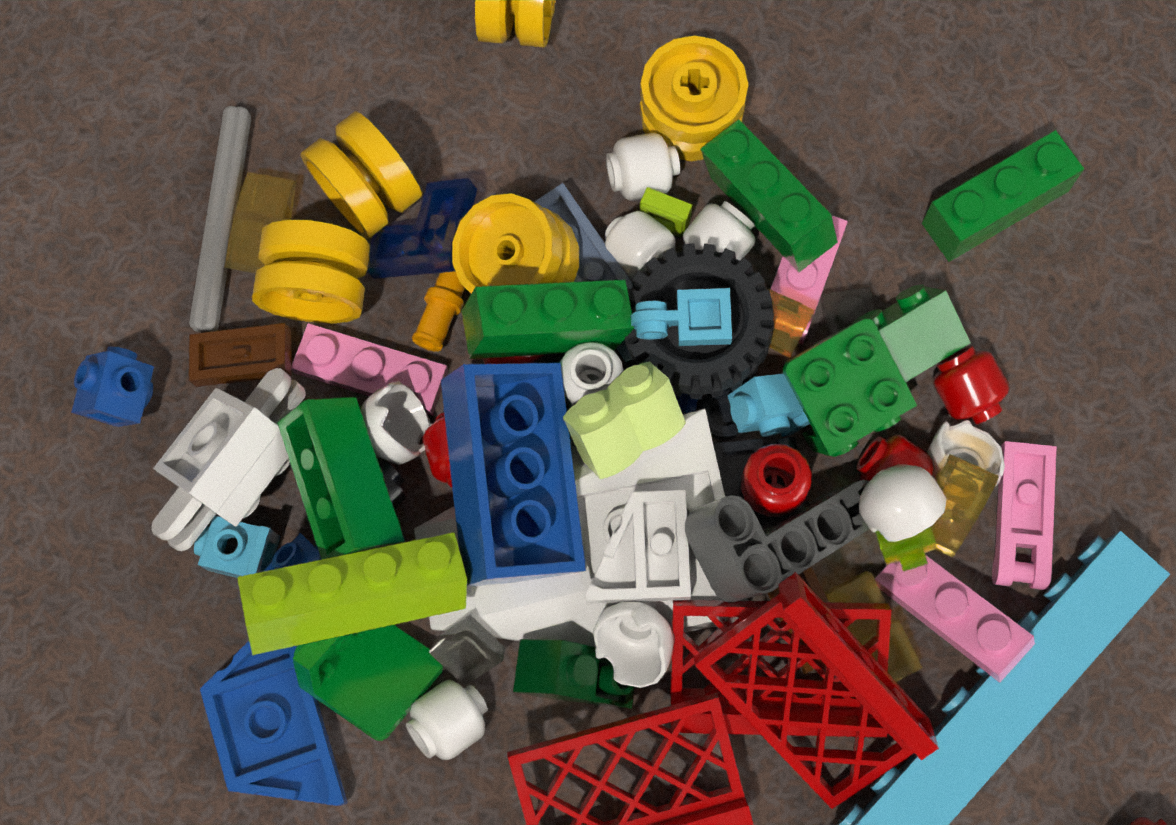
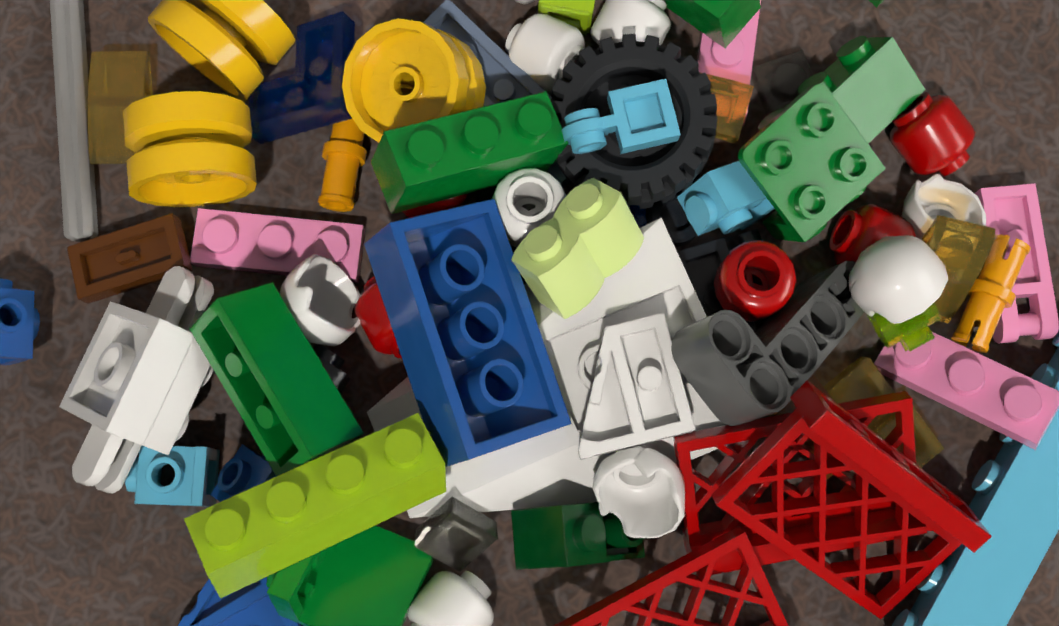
camera: 20 degrees left, 5 degrees up
(991, 535) = (991, 293): none -> light orange pin

